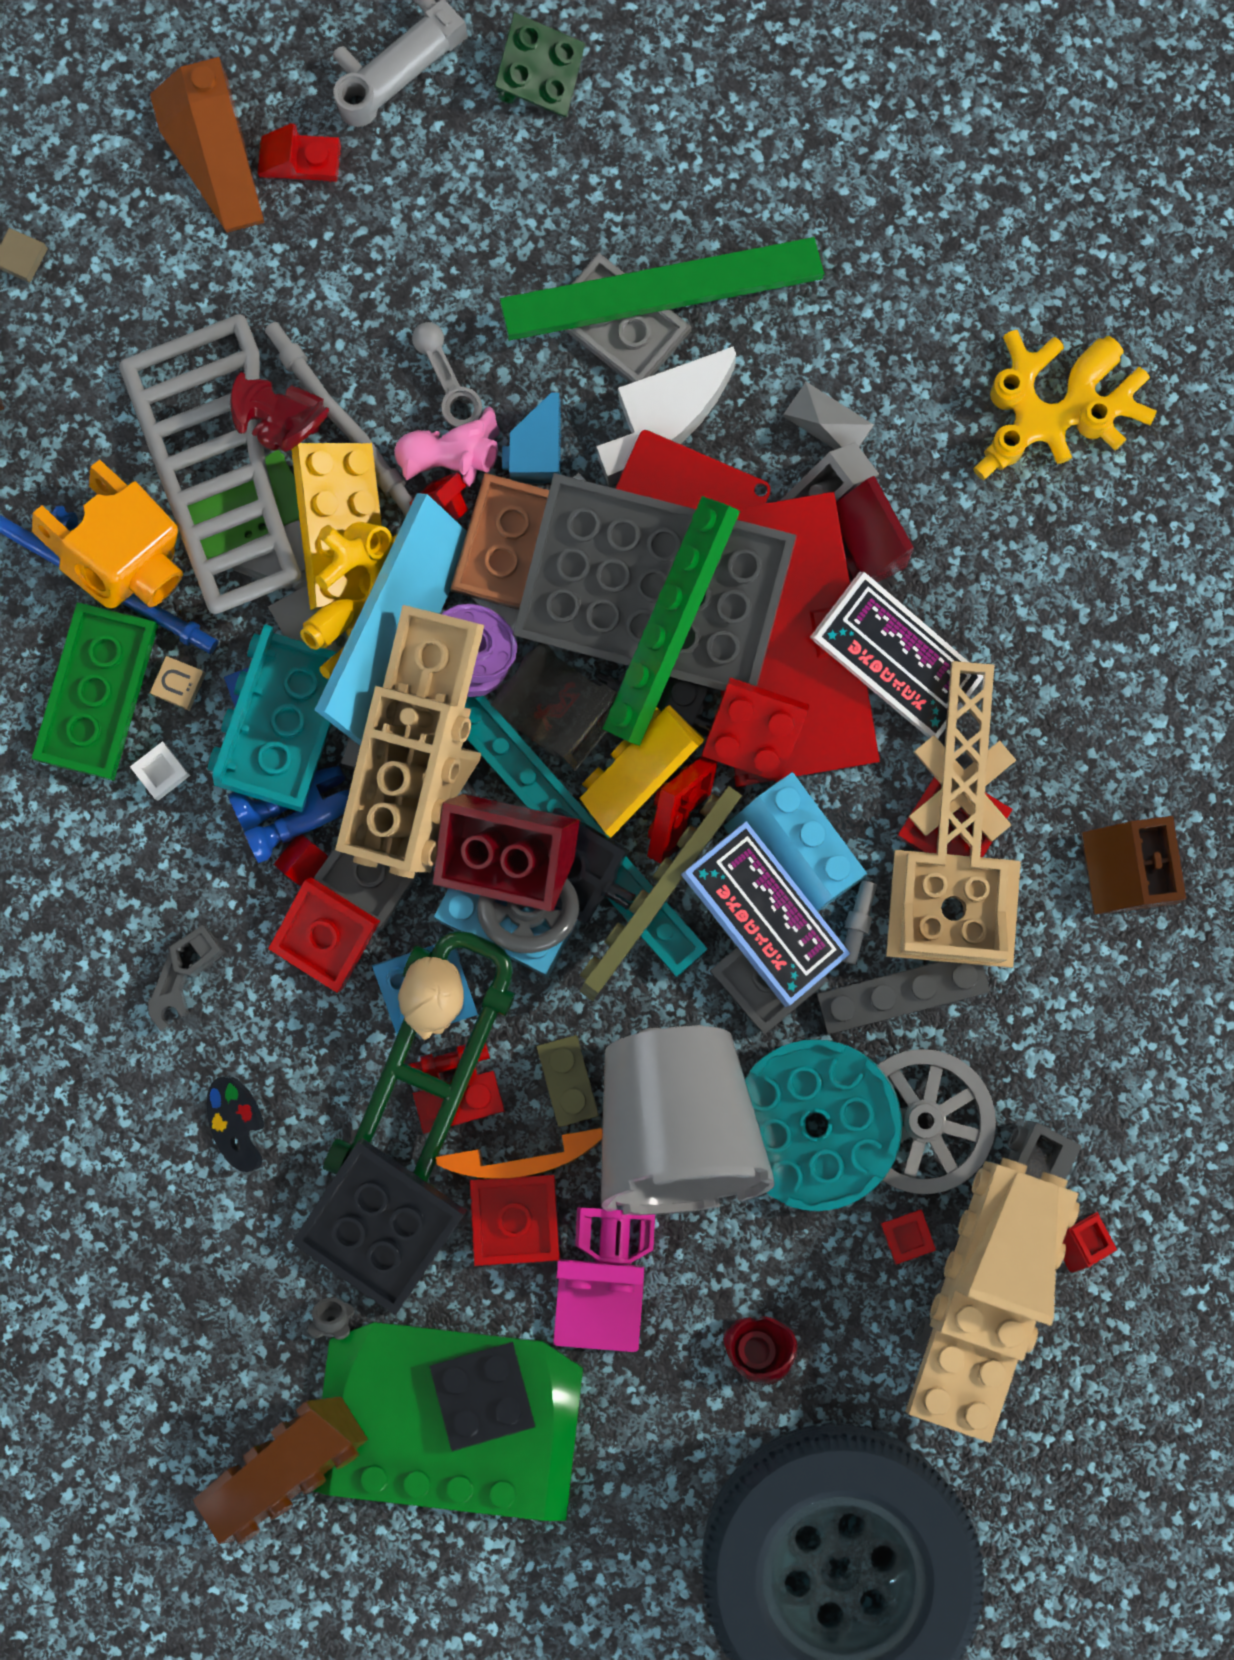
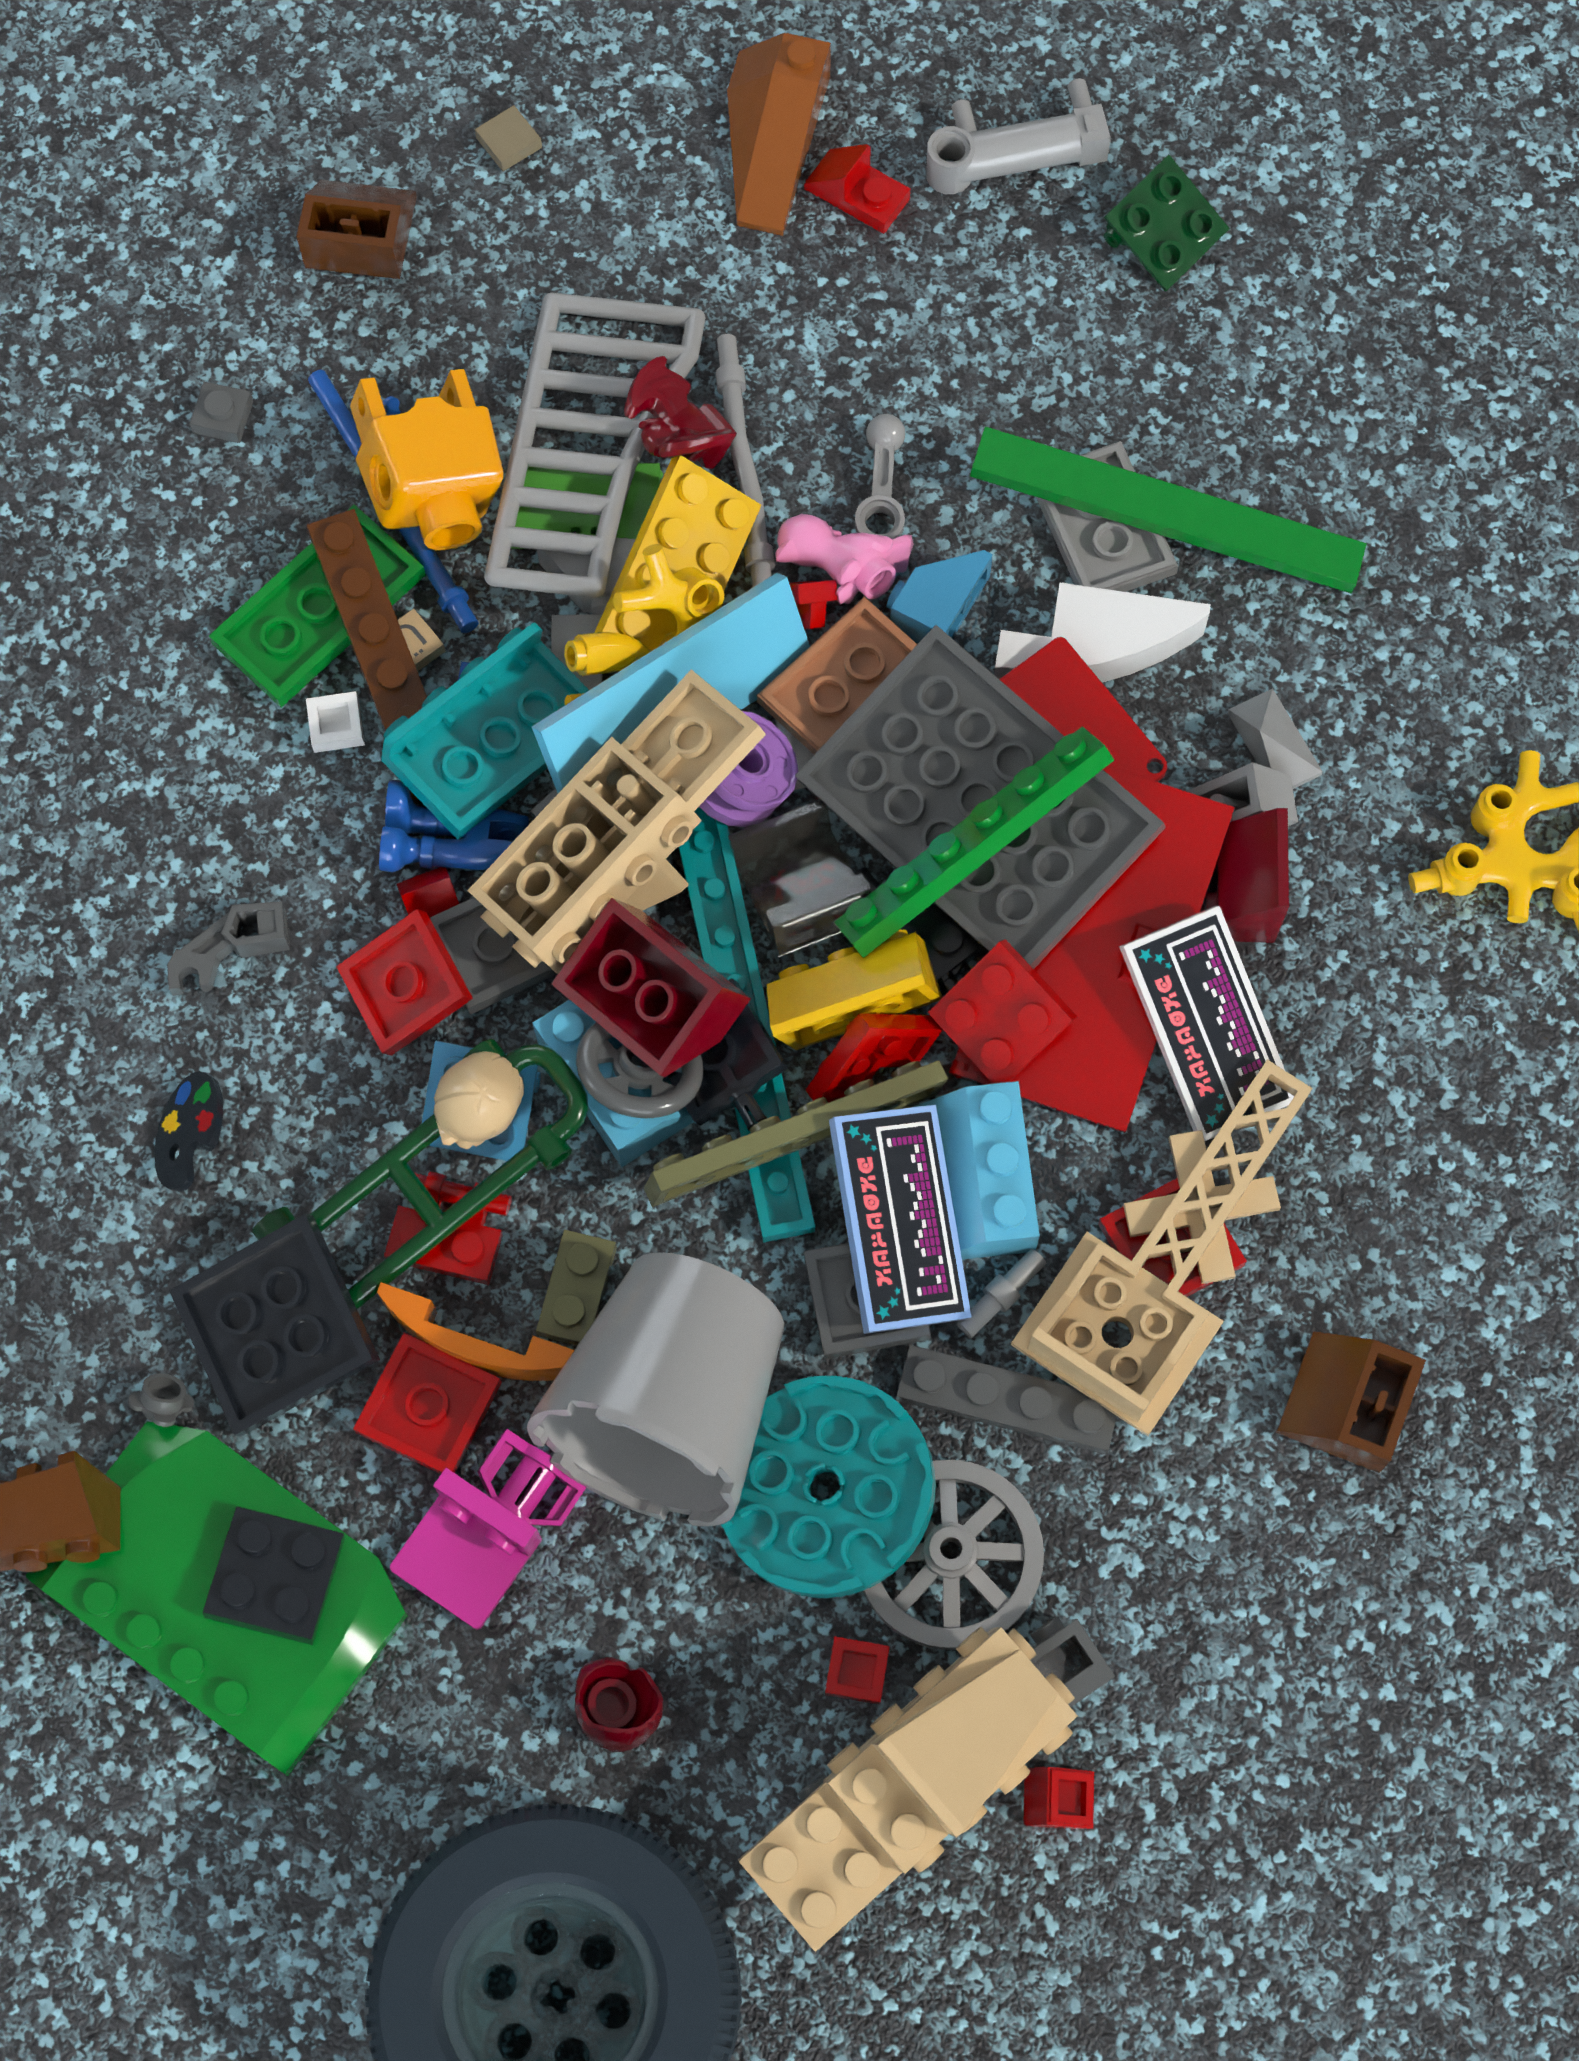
camera: 20 degrees right, 10 degrees down
(143, 685) = (368, 617): none -> reddish brown plate

